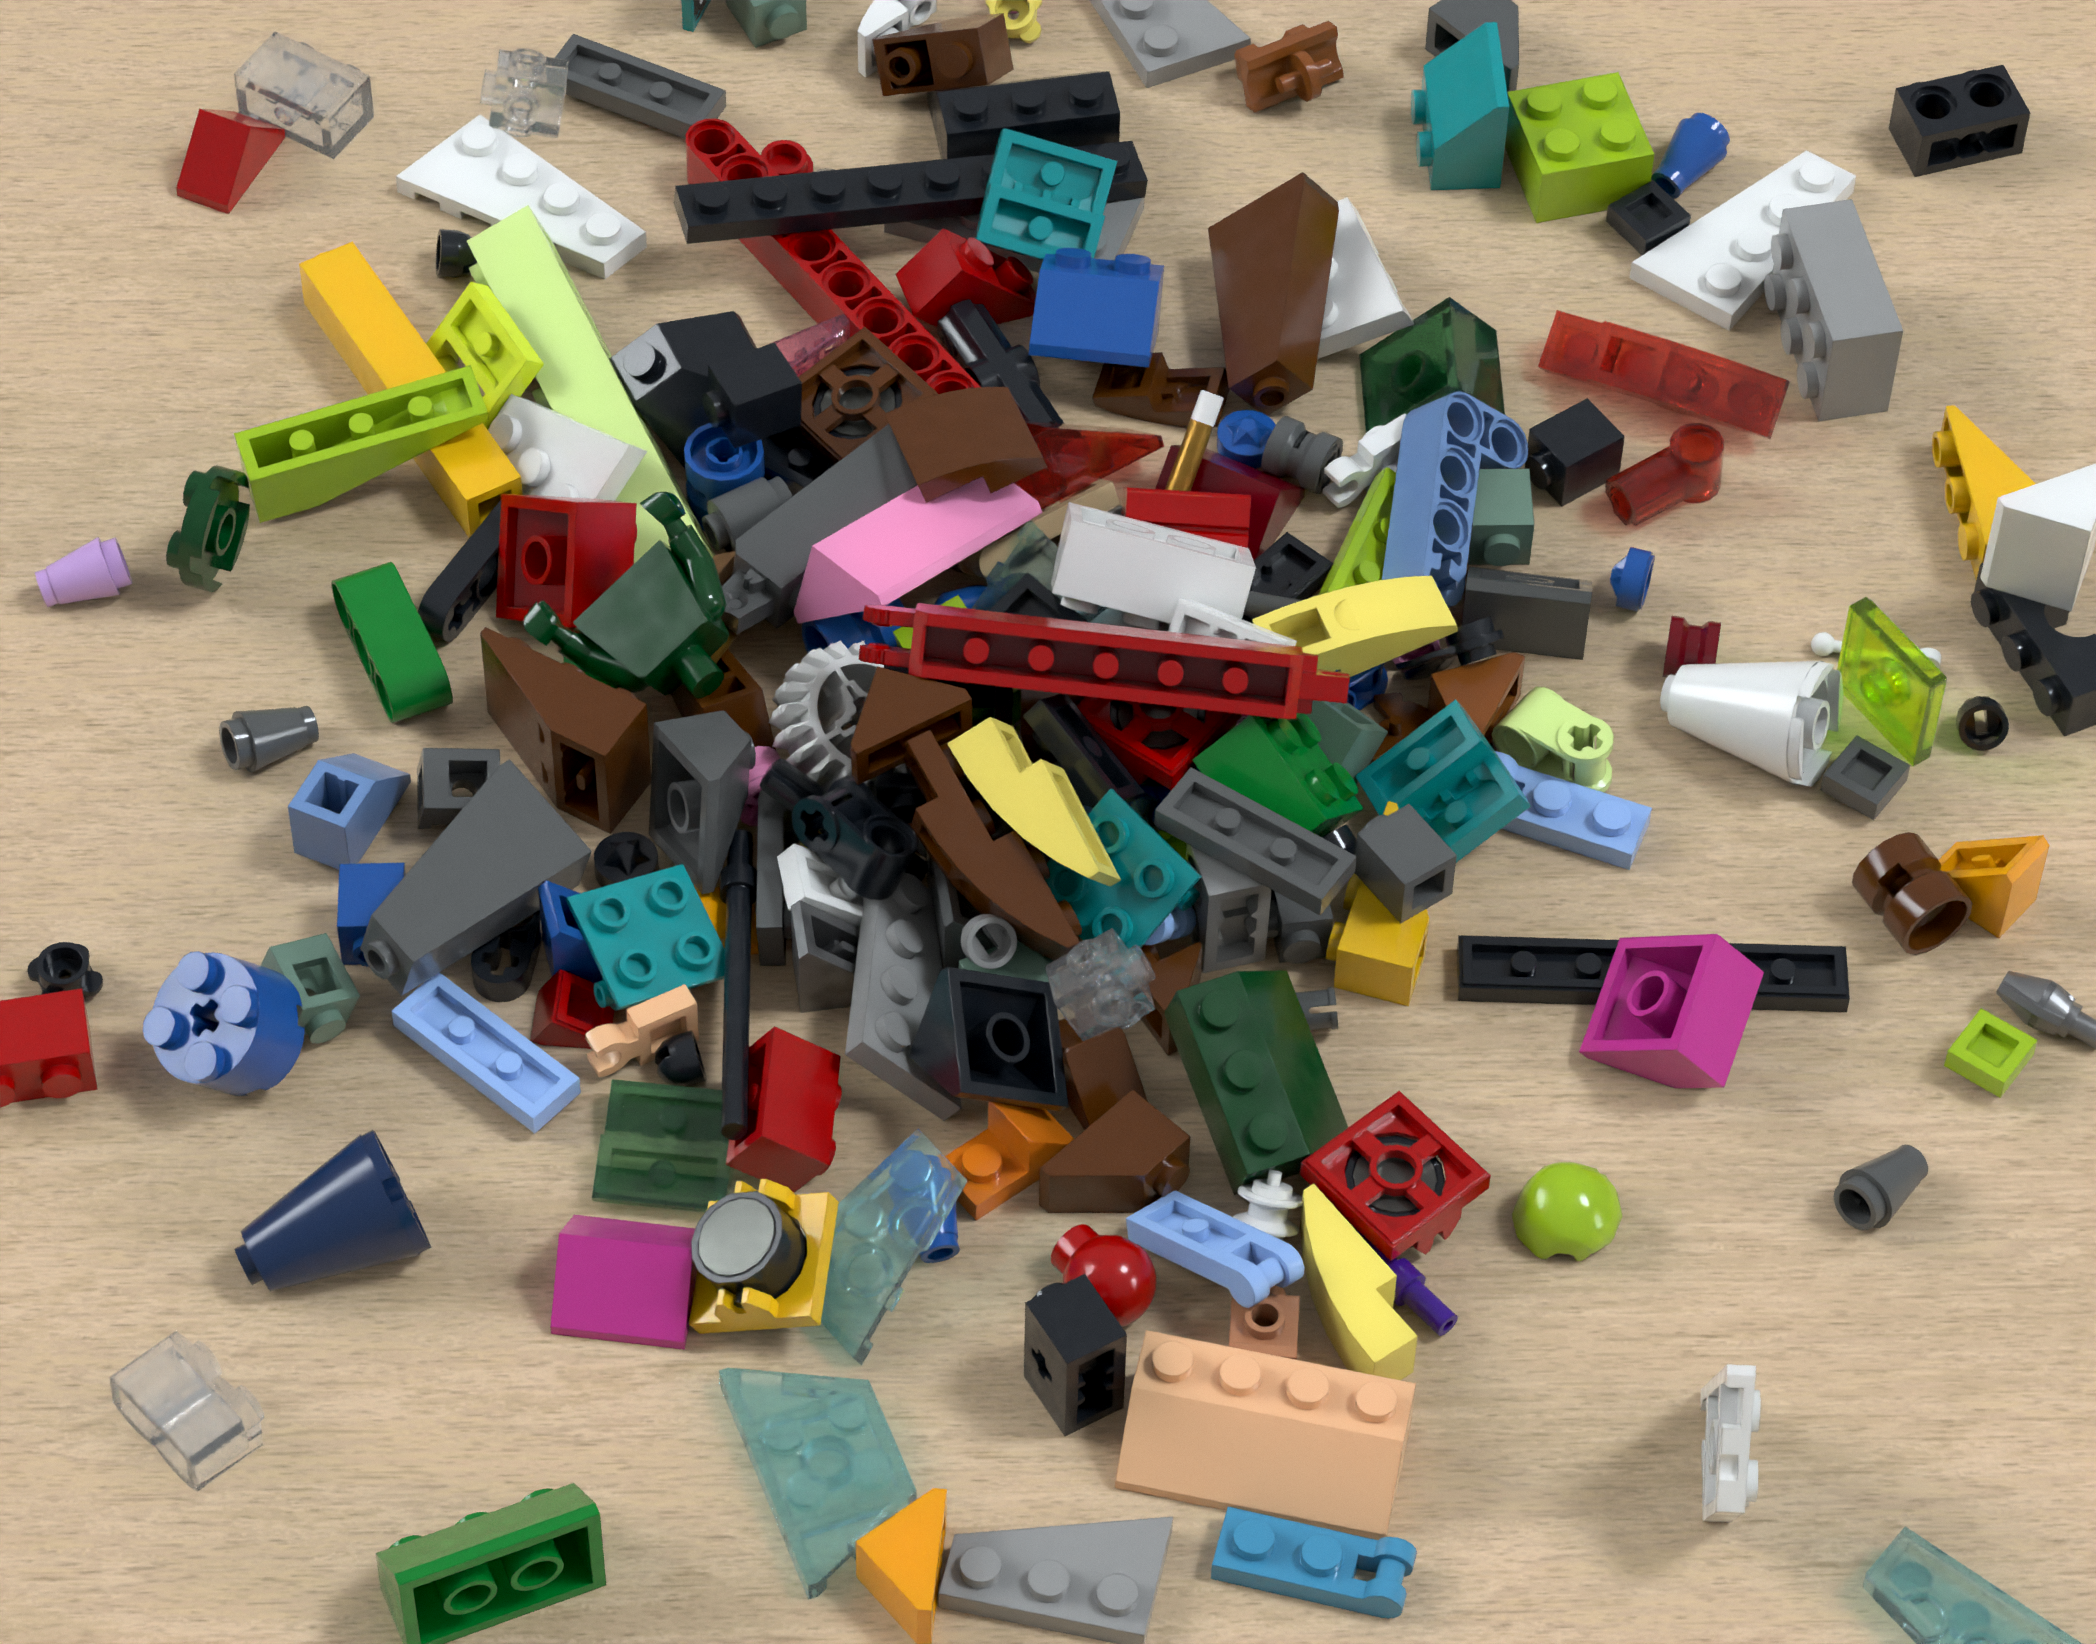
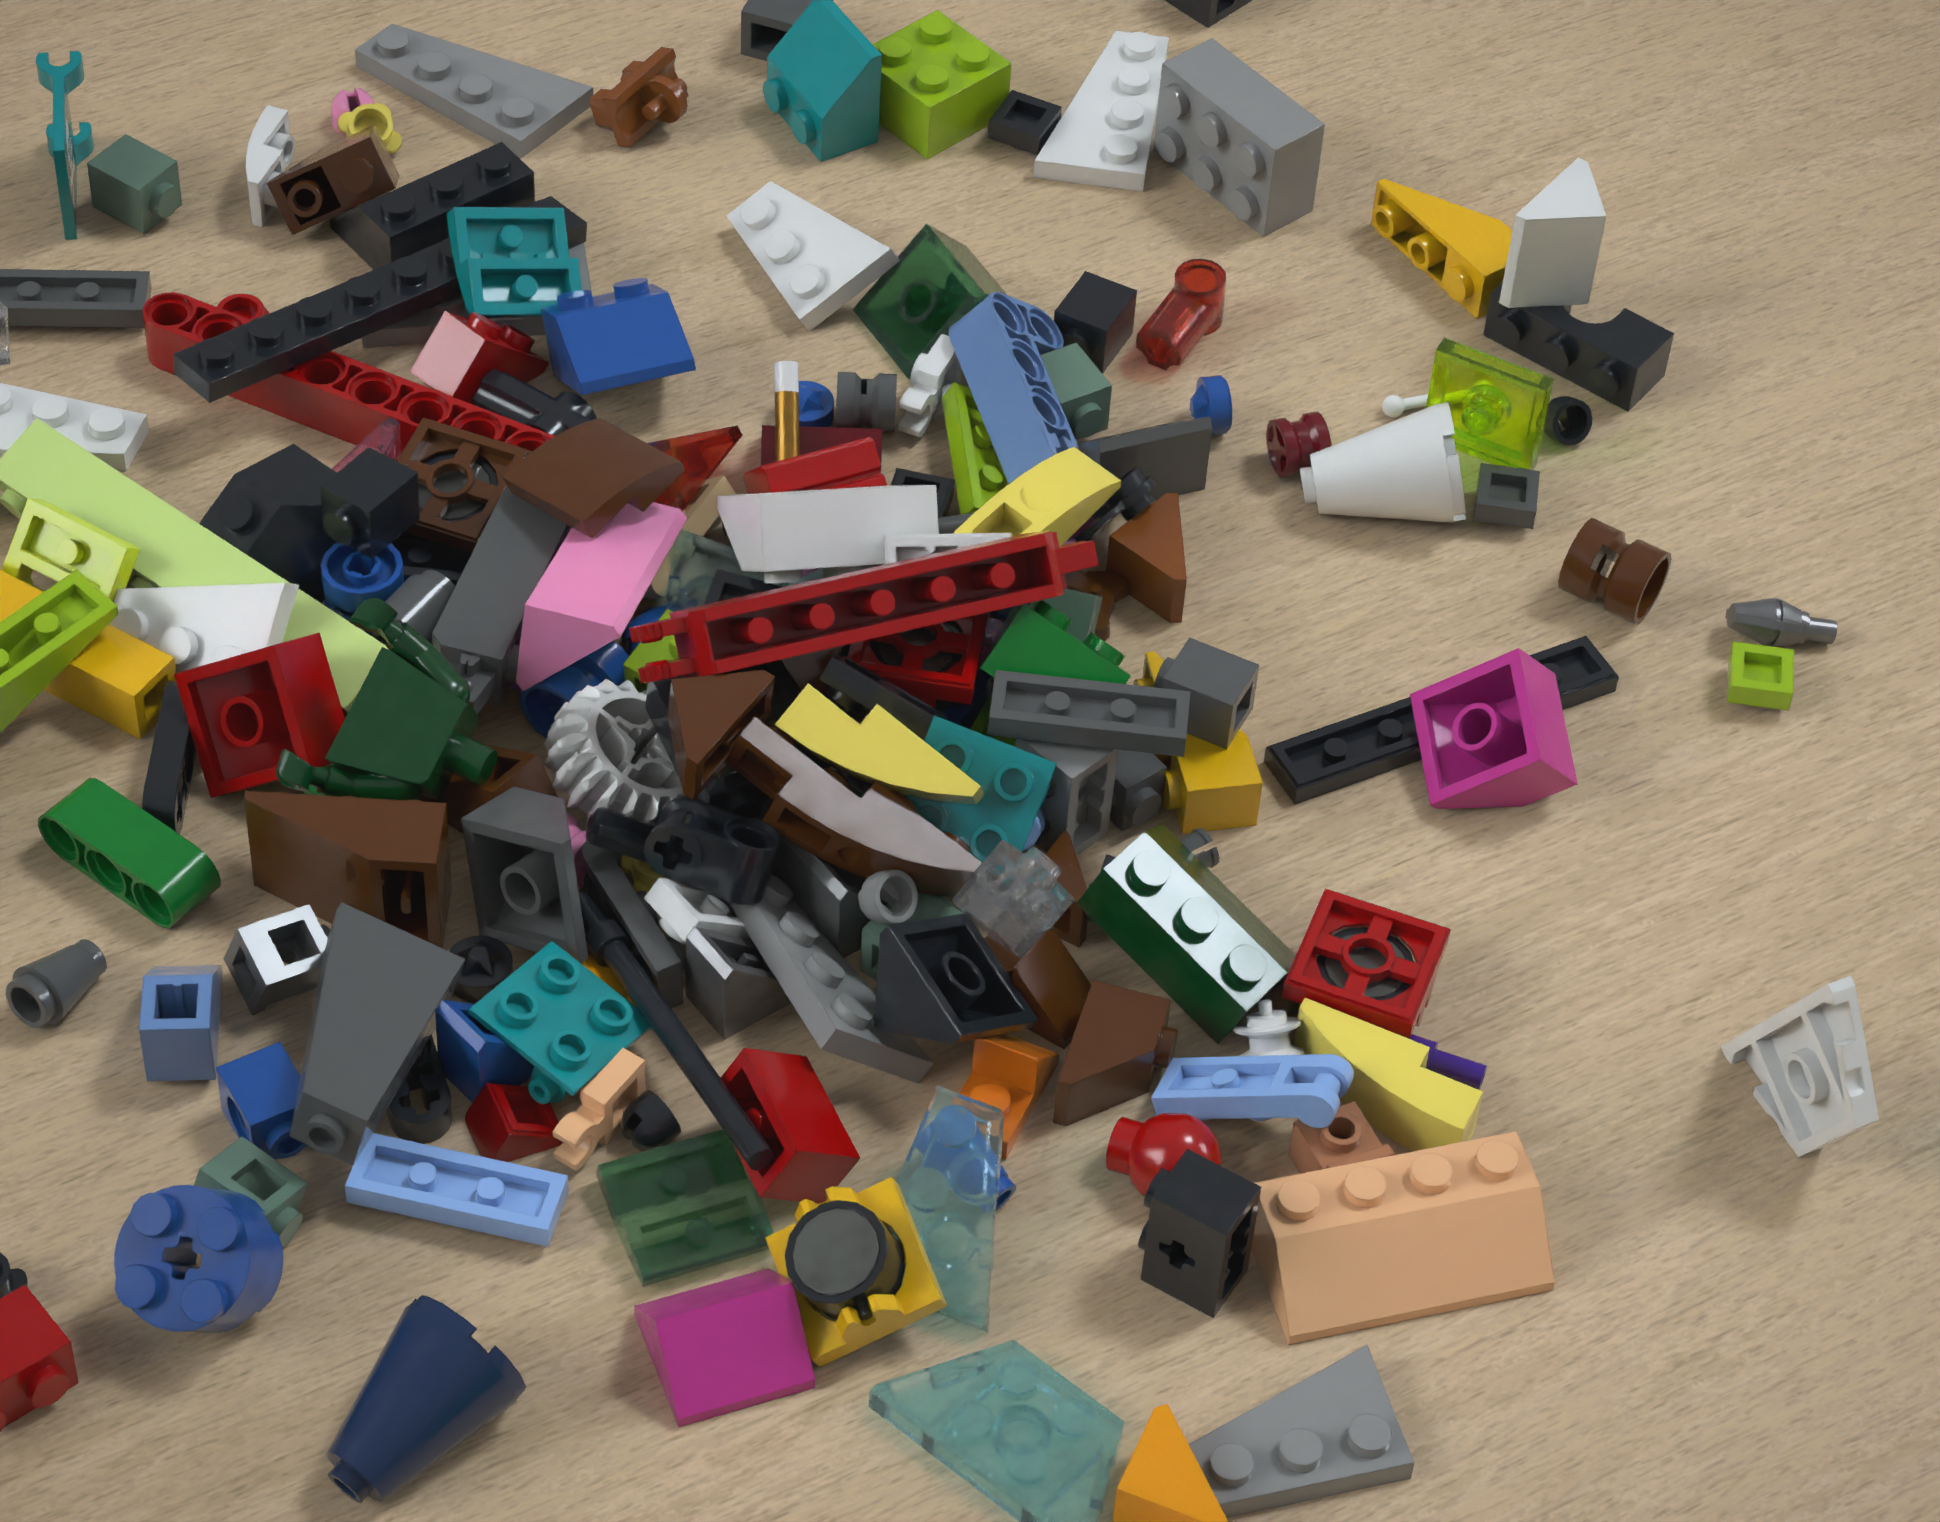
camera: 30 degrees left, 5 degrees down
(1158, 392) = (706, 397): reddish brown slope -> none
(1273, 290) = (757, 271): reddish brown slope -> none
(1313, 1563) = (1509, 1334): dark azure plate -> none
(1448, 779) = (1175, 602): teal slope -> none
(1555, 735) = (1235, 556): yellowish green piece -> none
(1567, 1211) = (1513, 941): lime hair -> none
(1578, 817) = (1274, 615): light blue plate -> none
(1664, 373) = (1125, 232): clear red slope -> none
(1692, 151) = (1030, 53): blue cone -> none
(1879, 1187) = (1752, 819): dark grey cone -> none
(1998, 877) = (1674, 525): light orange slope -> none

